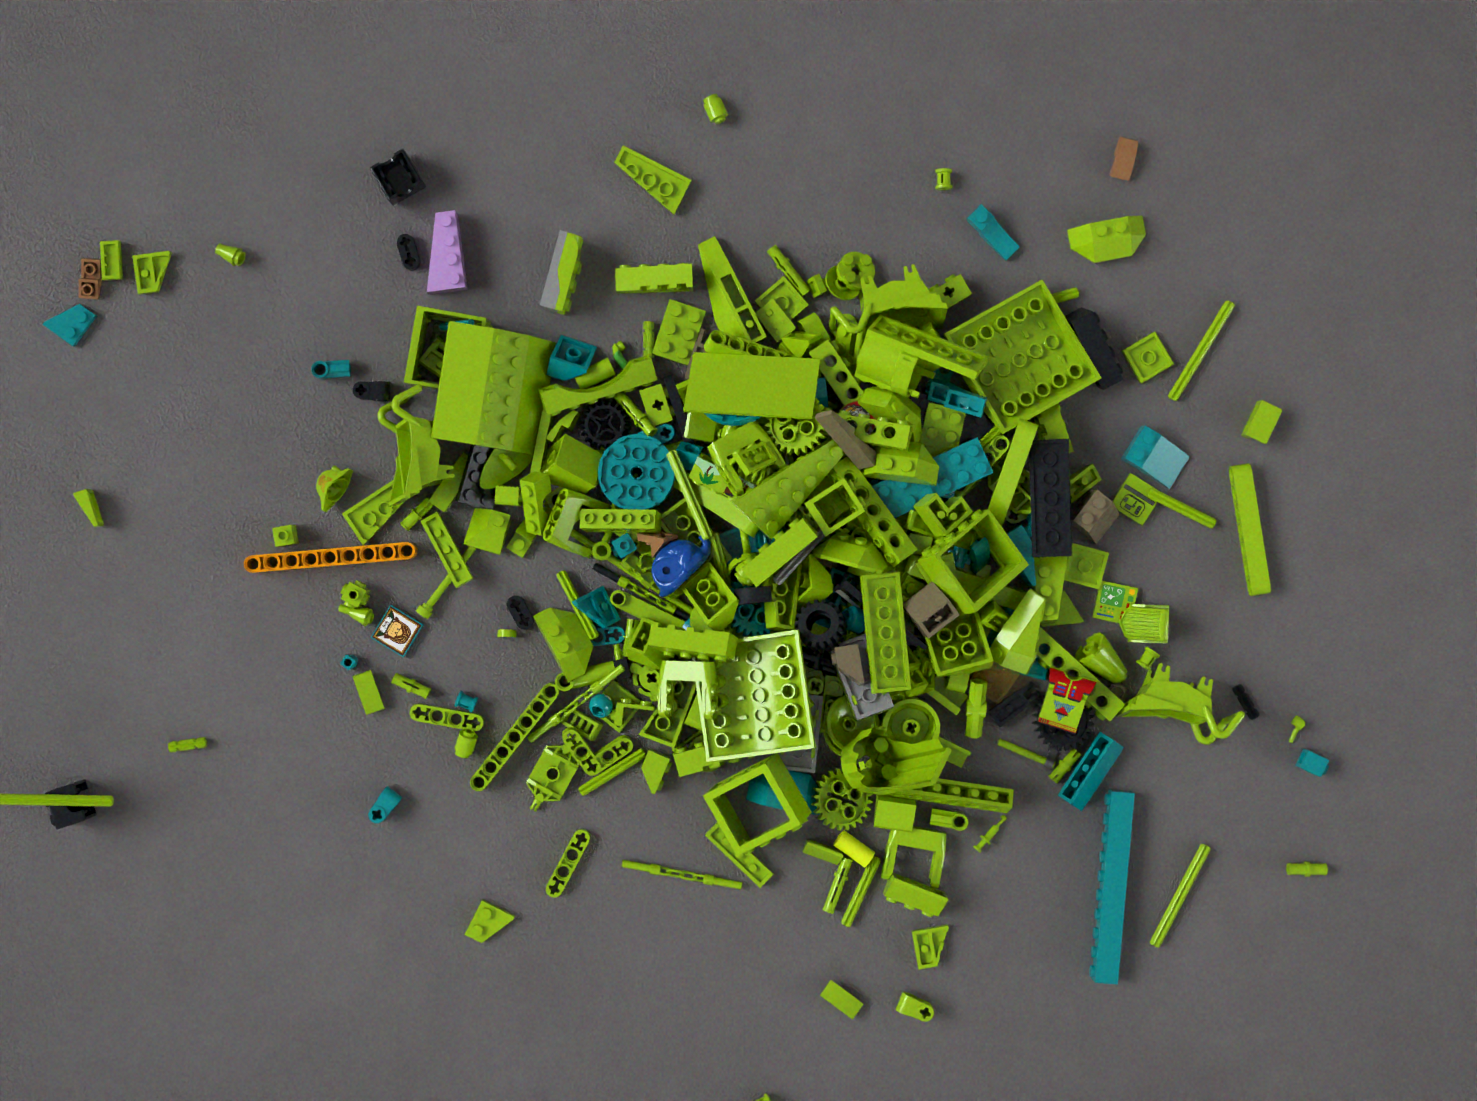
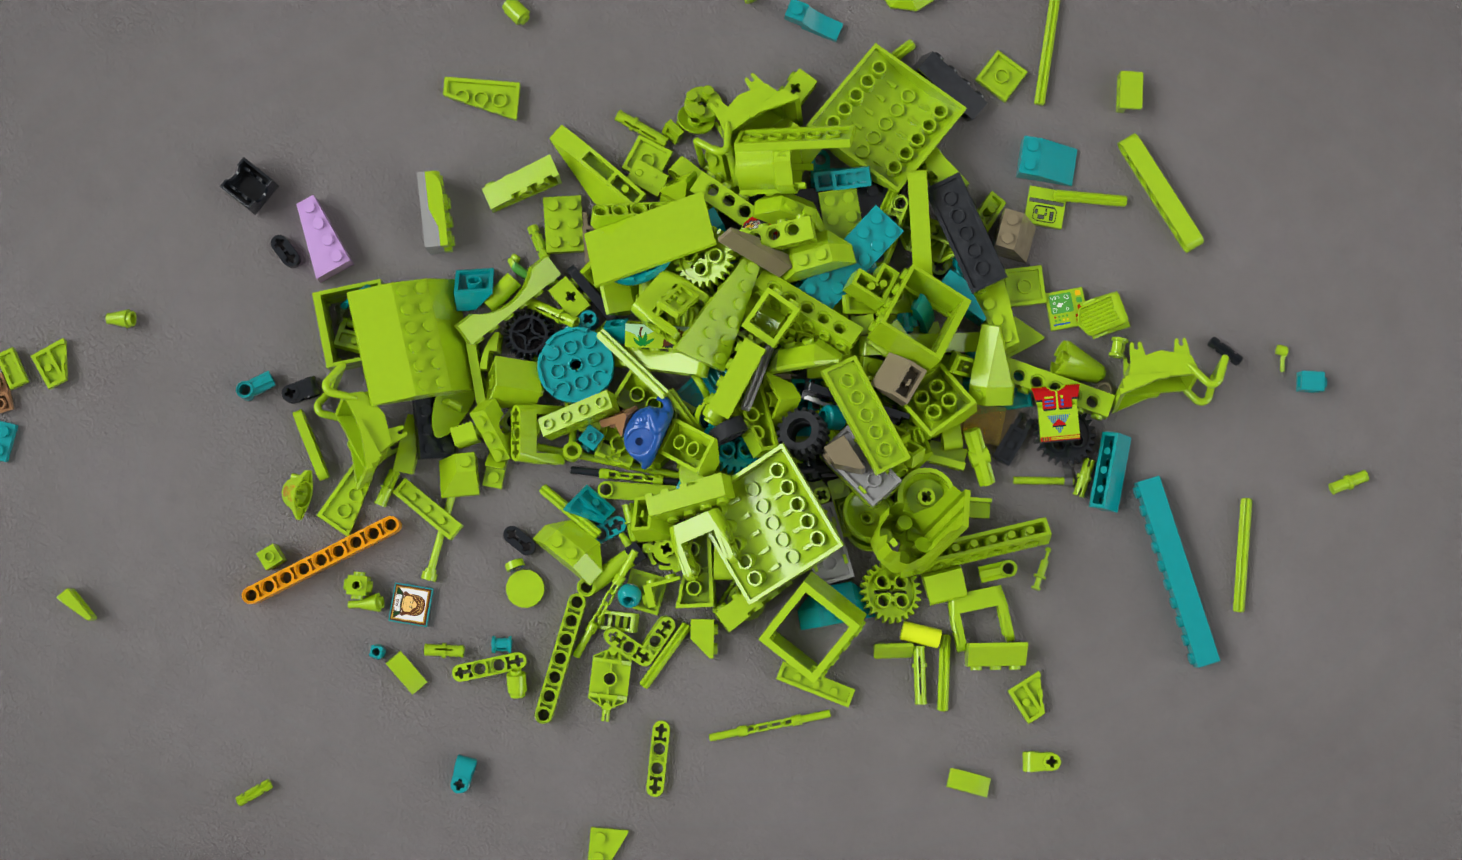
camera: 25 degrees left, 5 degrees down
(362, 449) = (311, 444): none -> lime beam
(508, 658) = (525, 588): none -> lime tile

